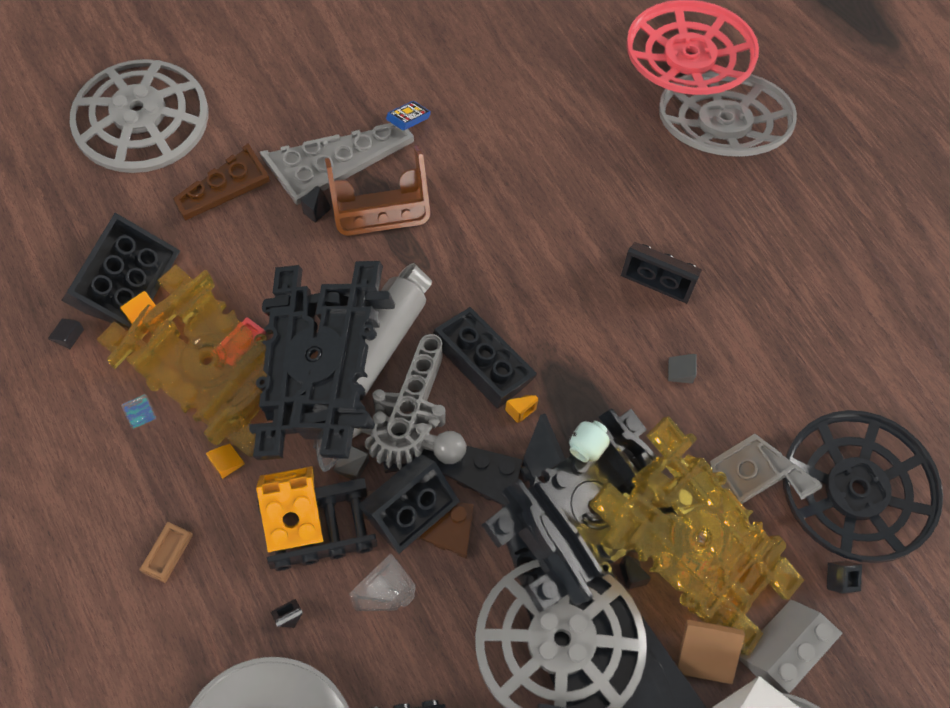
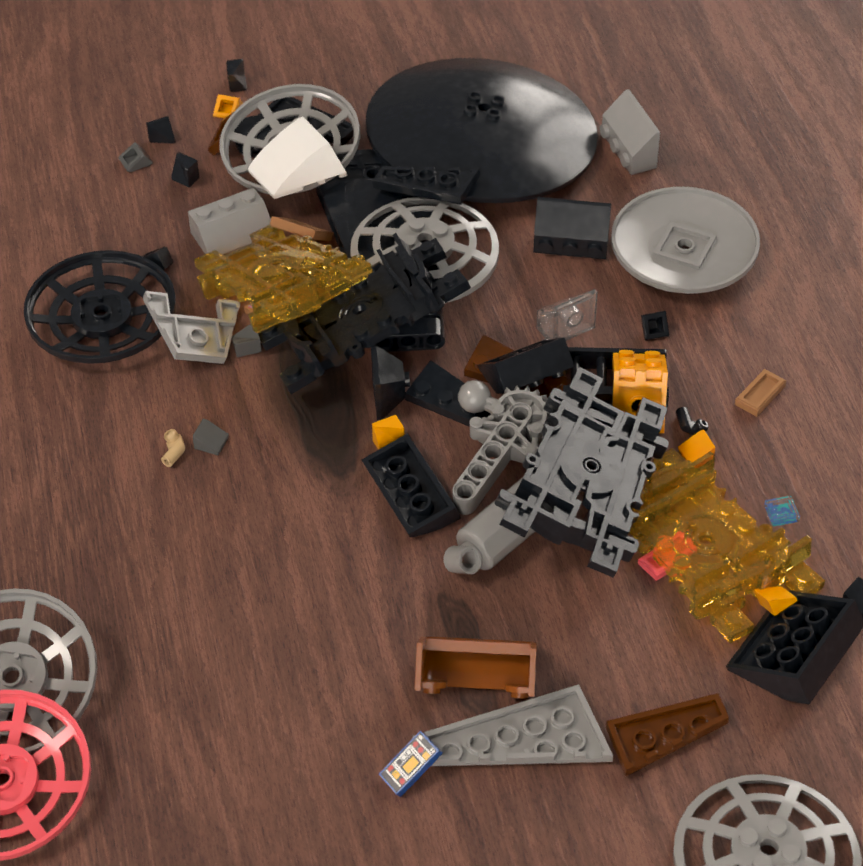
camera: 160 degrees left, 15 degrees down
(234, 489) = (688, 425): none -> black arm
(315, 204) = (559, 678): black slope -> none
(589, 441) = (348, 331): light aqua head -> none
(660, 272) = (186, 517): black slope -> none
(707, 352) = (175, 447): none -> tan arm

